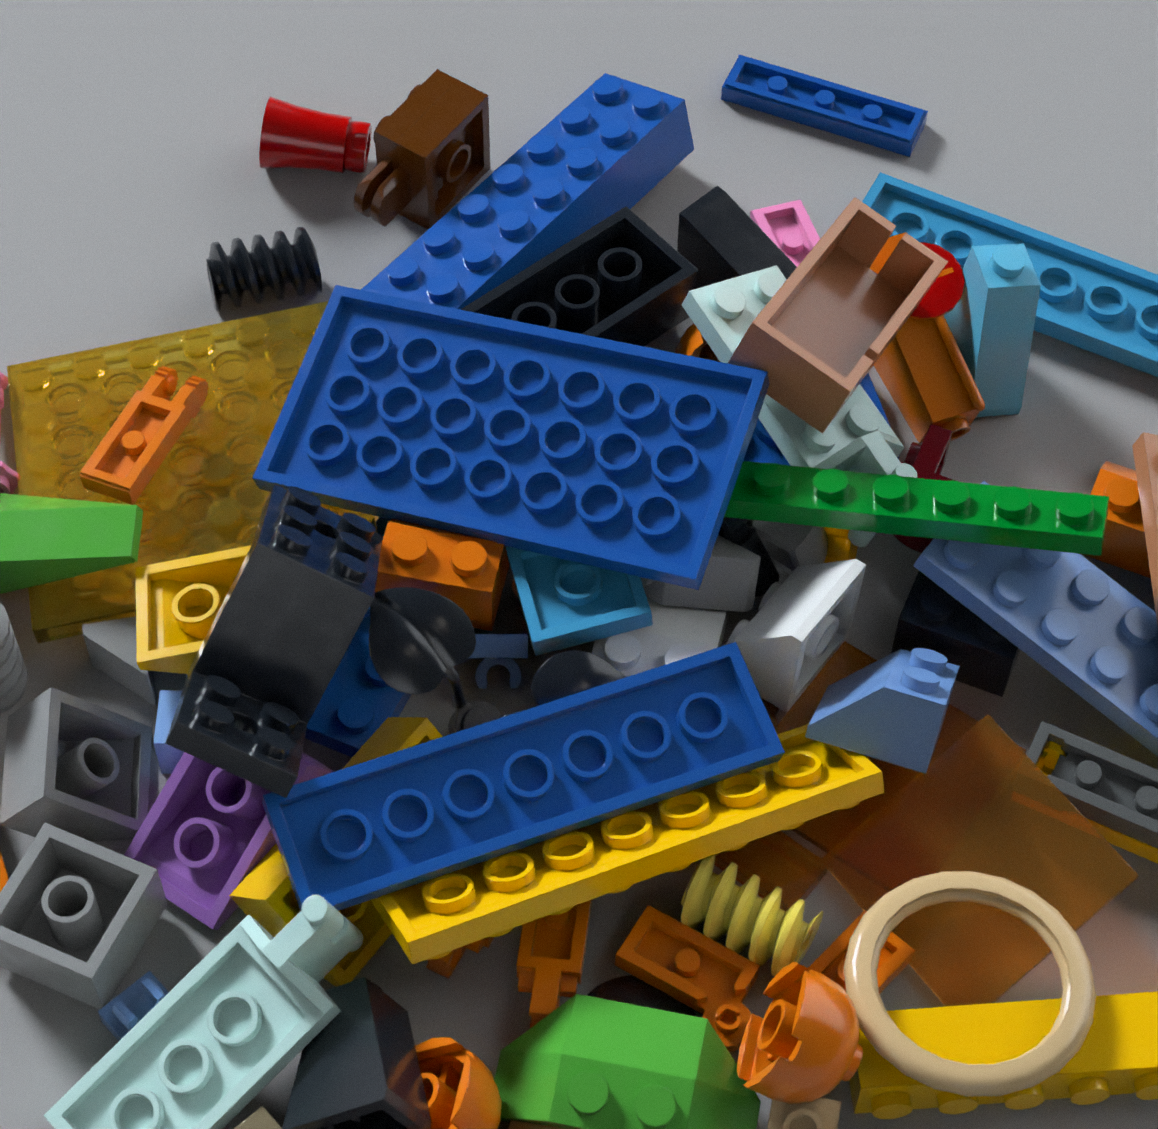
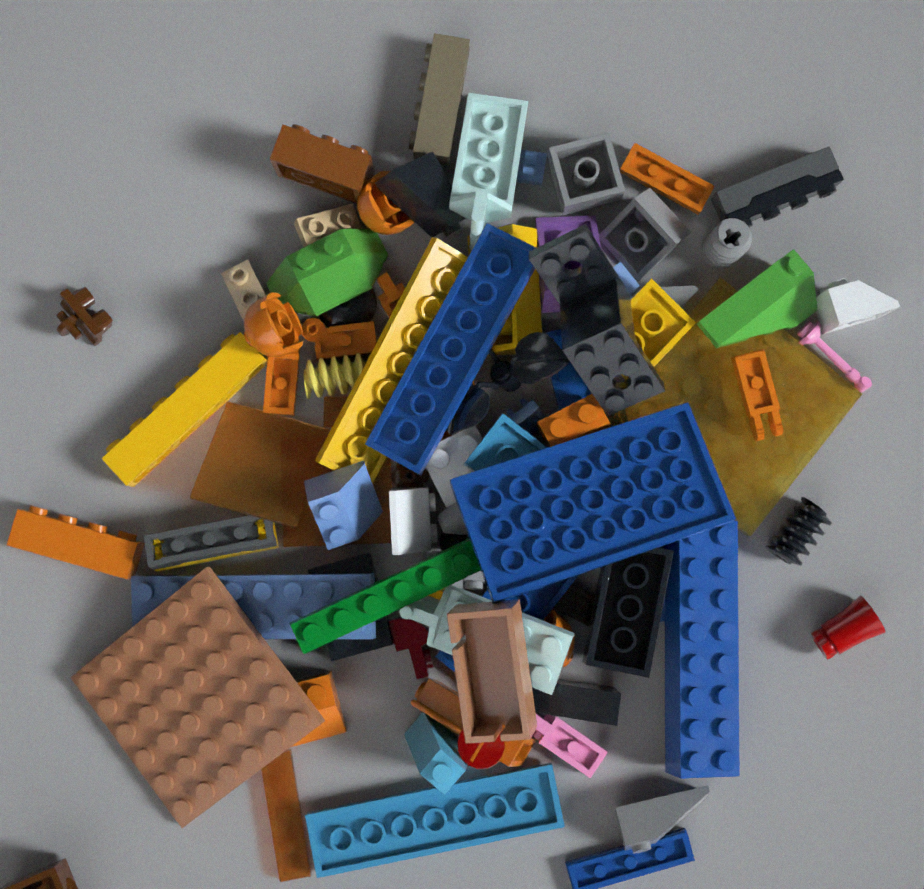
camera: 140 degrees right, 30 degrees up
(427, 153) = (782, 654): reddish brown brick -> none
(754, 110) = (651, 819): none -> light grey slope
(948, 1075) = (210, 451): tan wedge -> none

